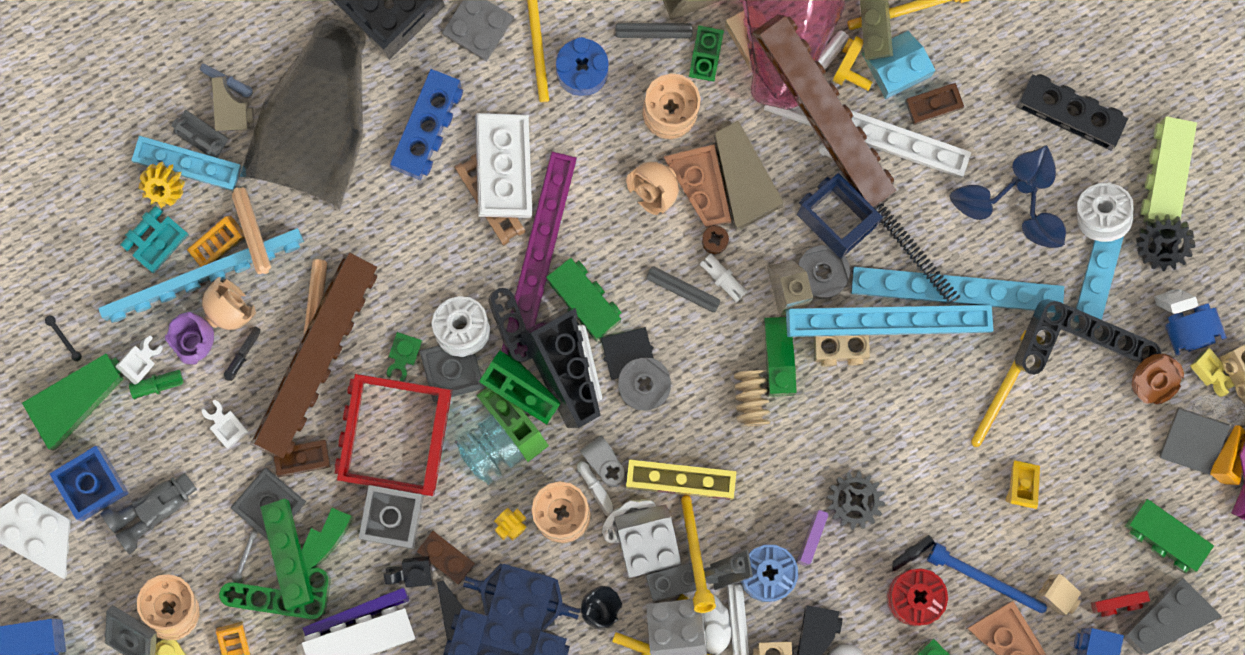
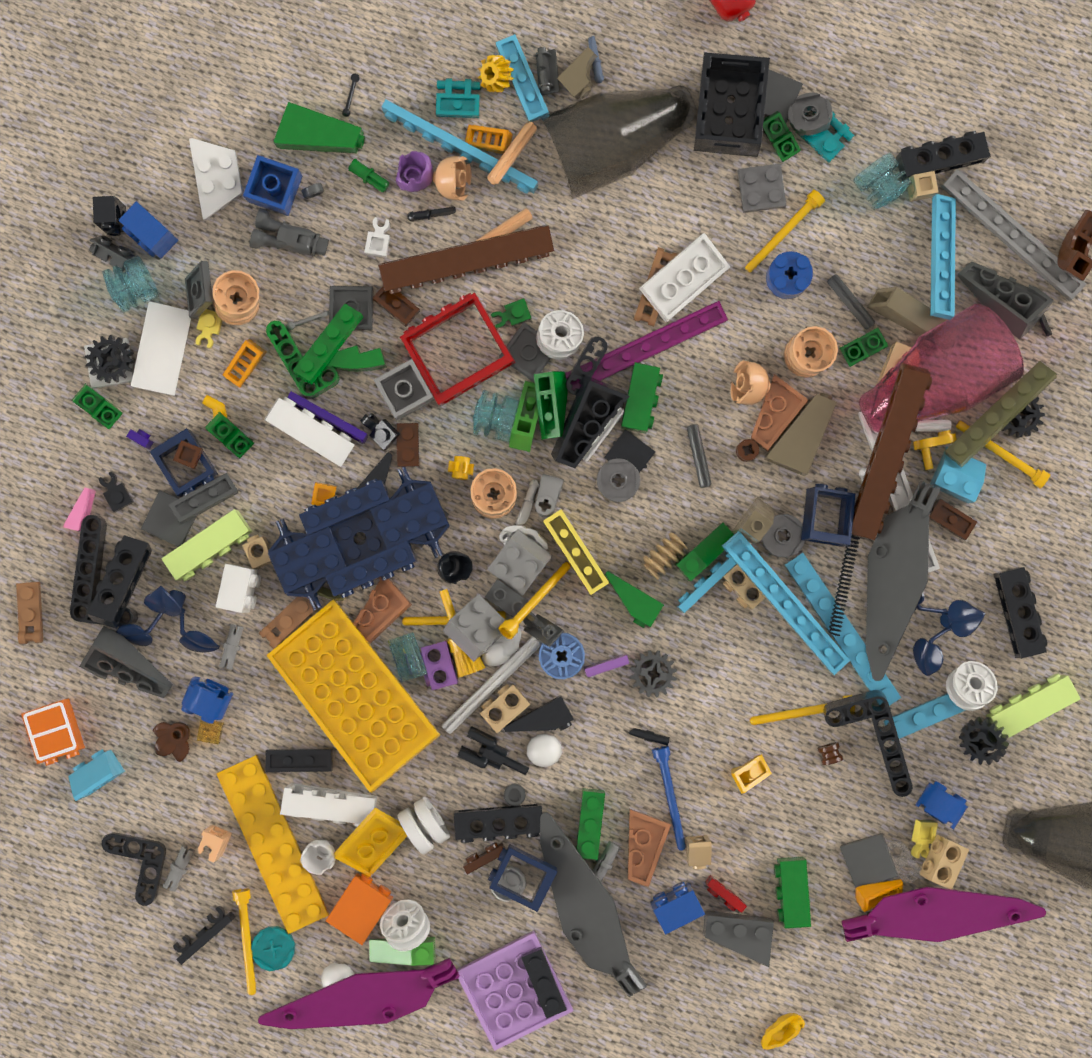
camera: 55 degrees right, 5 degrees up
(125, 449) = (312, 191): none -> dark grey tile
(137, 362) = (371, 152): white plate -> none
(435, 86) = (700, 192): blue brick -> none
(723, 277) = (727, 475): white pin -> none
(775, 461) = (638, 604): none -> green slope
(810, 383) = (704, 585): none -> medium azure plate
(901, 596) = (617, 750): red wheel -> none
(947, 197) = (897, 576): none -> dark grey wing
(1064, 395) = (830, 753): none -> reddish brown wheel
(1157, 378) = (889, 805): dark orange tile -> none
(1176, 301) = (950, 778): white plate -> none

